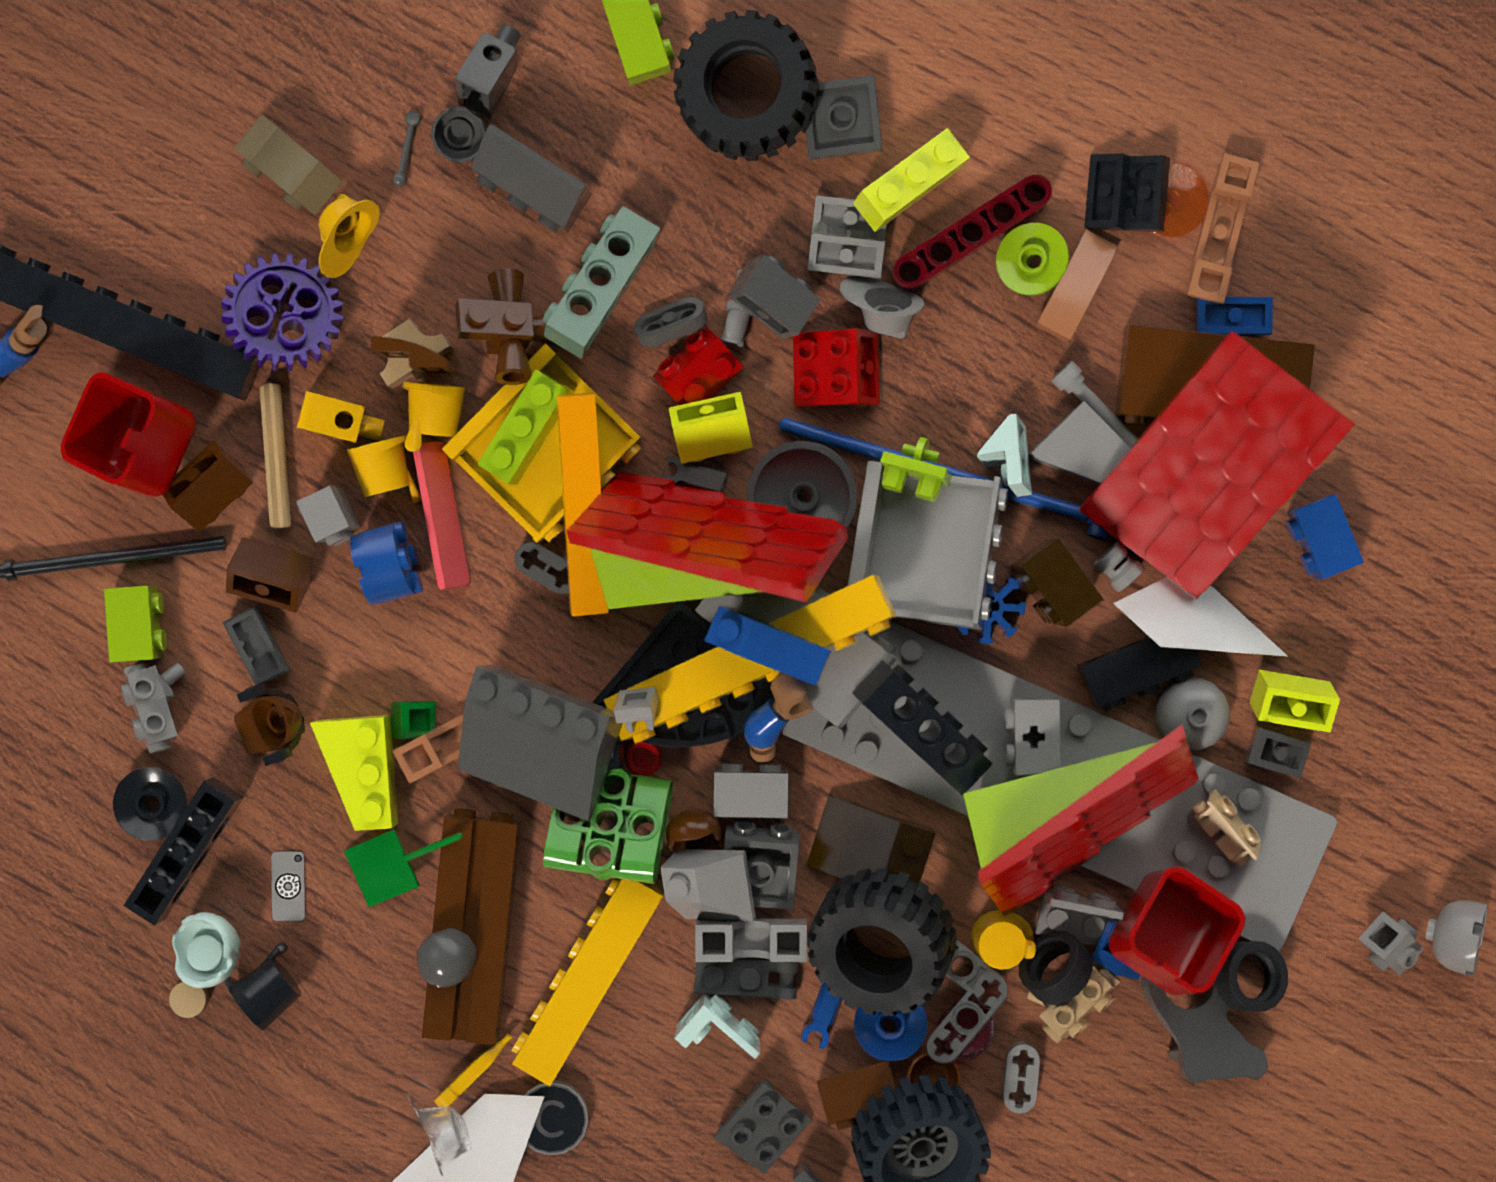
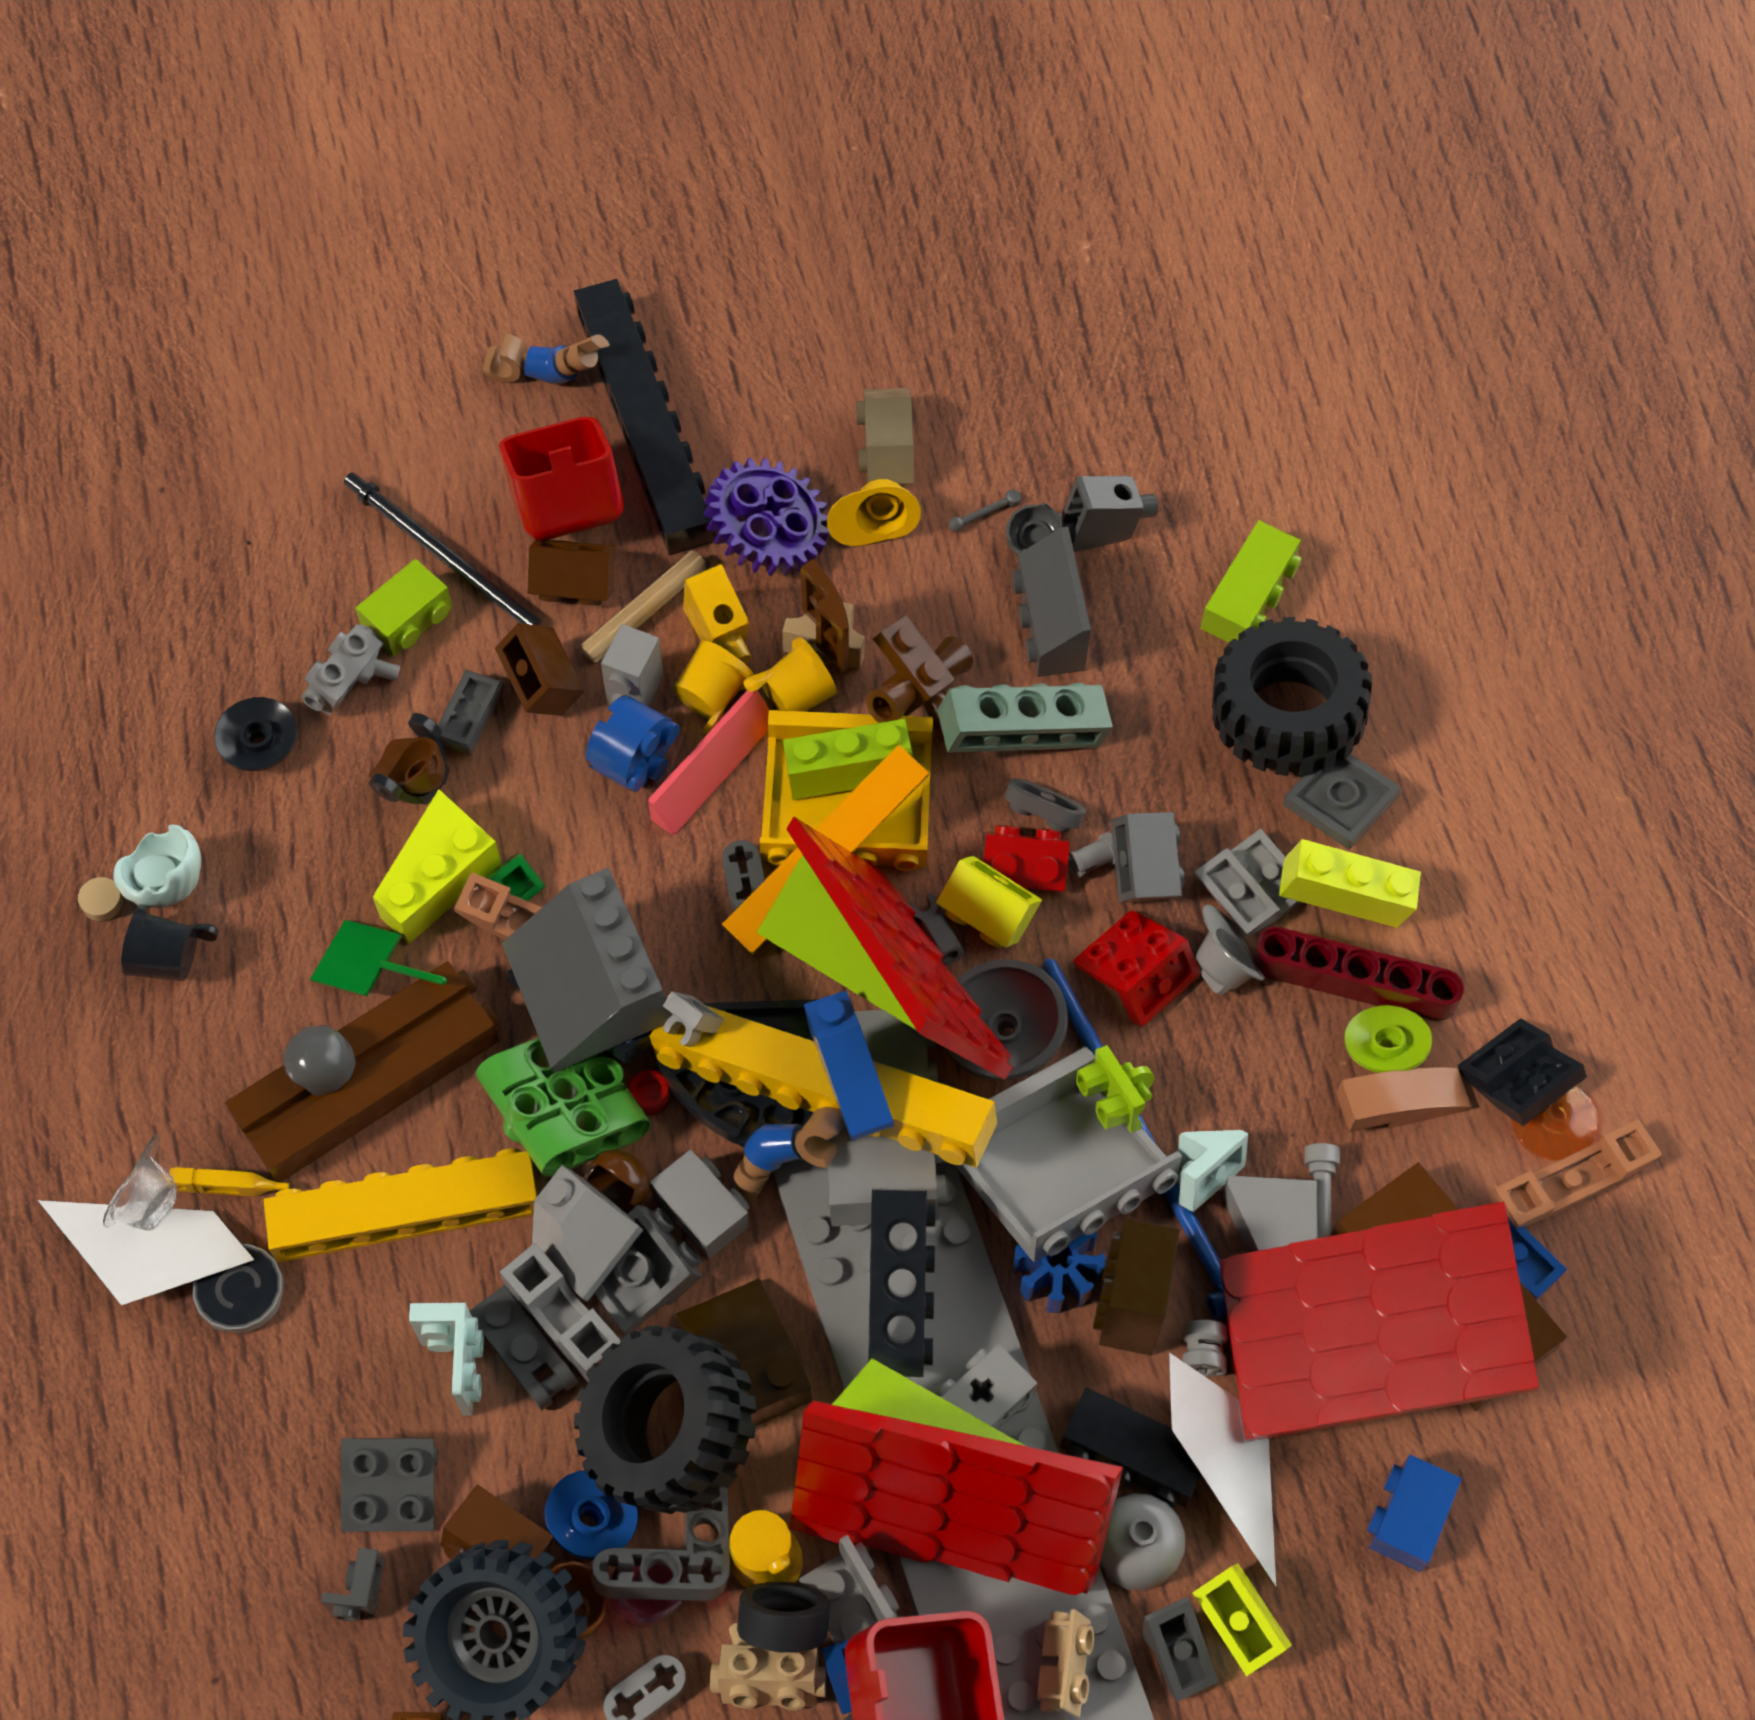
camera: 50 degrees right, 25 degrees down
(183, 851) = (235, 786): black brick -> none
(288, 886) = (273, 901): light grey sticker -> none
(823, 1014) = (546, 1449): blue bar -> none

